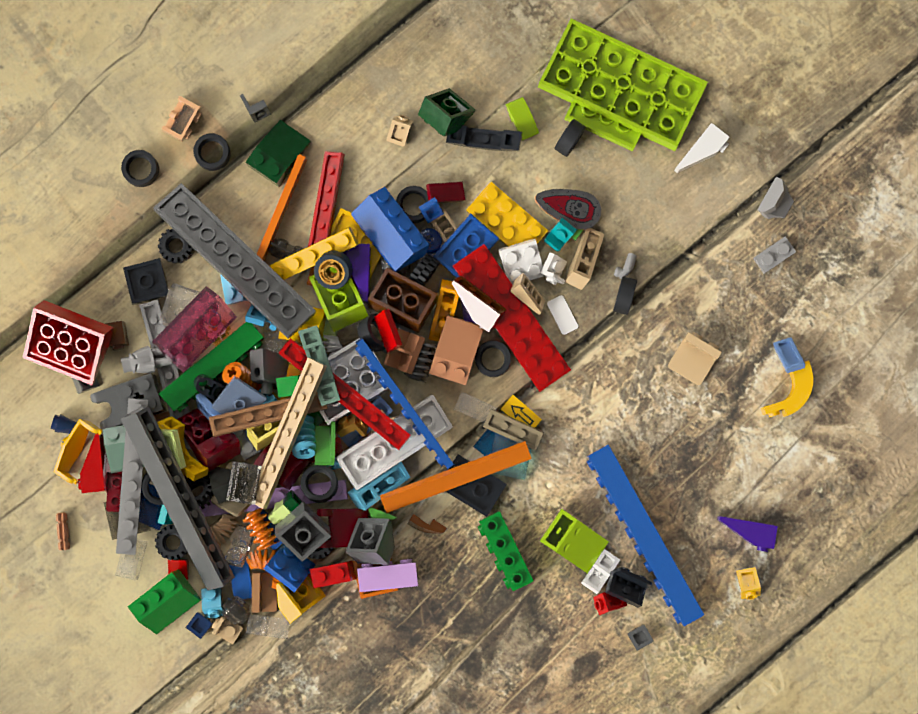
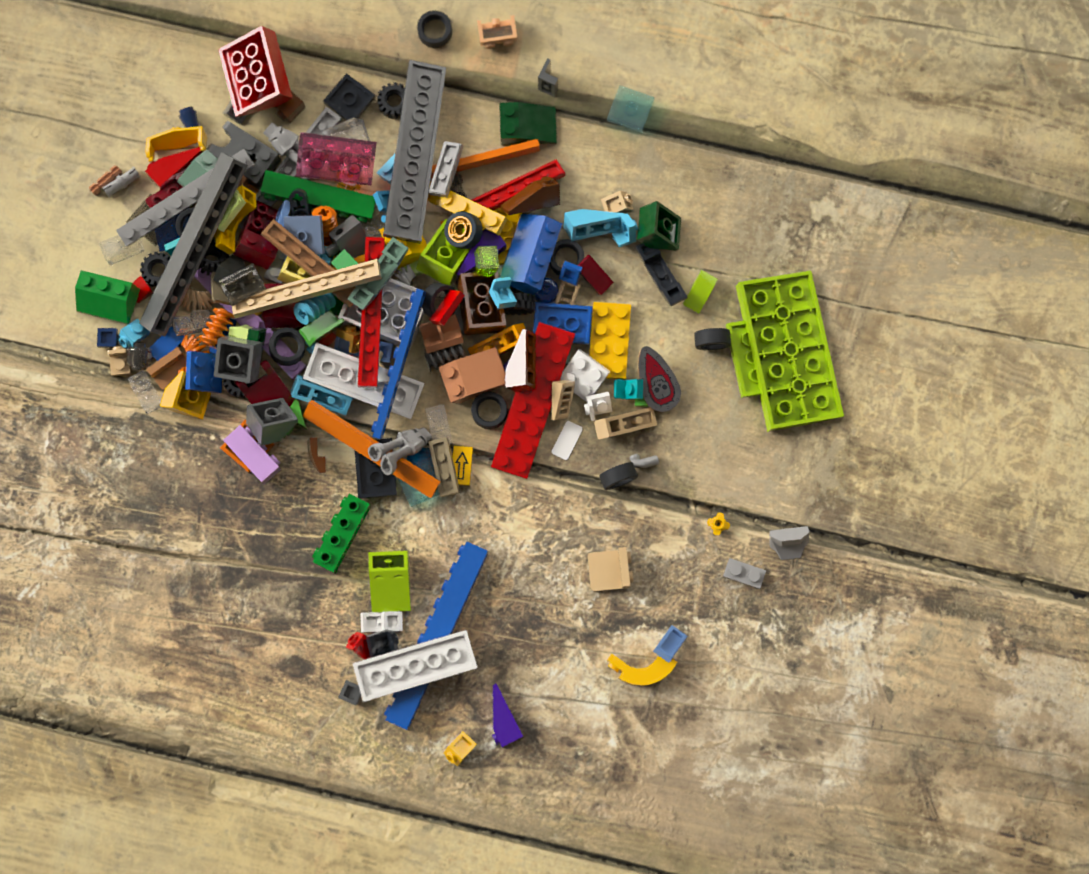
camera: 45 degrees right, 5 degrees down
(74, 519) = (121, 182): none -> light grey pin
(201, 142) = (486, 87): black tyre -> none
(269, 246) = (445, 169): none -> light grey tile
(328, 60) = (630, 108): none -> clear light blue plate
(333, 574) = (223, 410): red brick -> none
(345, 193) = (536, 196): none -> reddish brown slope
(373, 269) = (486, 260): none -> clear neon green brick
(400, 164) = (591, 223): none -> medium azure slope
(409, 277) = (502, 293): none -> medium azure bracket
(430, 139) = (628, 232): none -> medium azure bracket
(473, 442) = (408, 441): none -> light grey piece
(659, 571) = (414, 665): none -> white plate
(707, 146) = (790, 453): white slope -> none
(715, 246) = (723, 524): none -> yellow plate

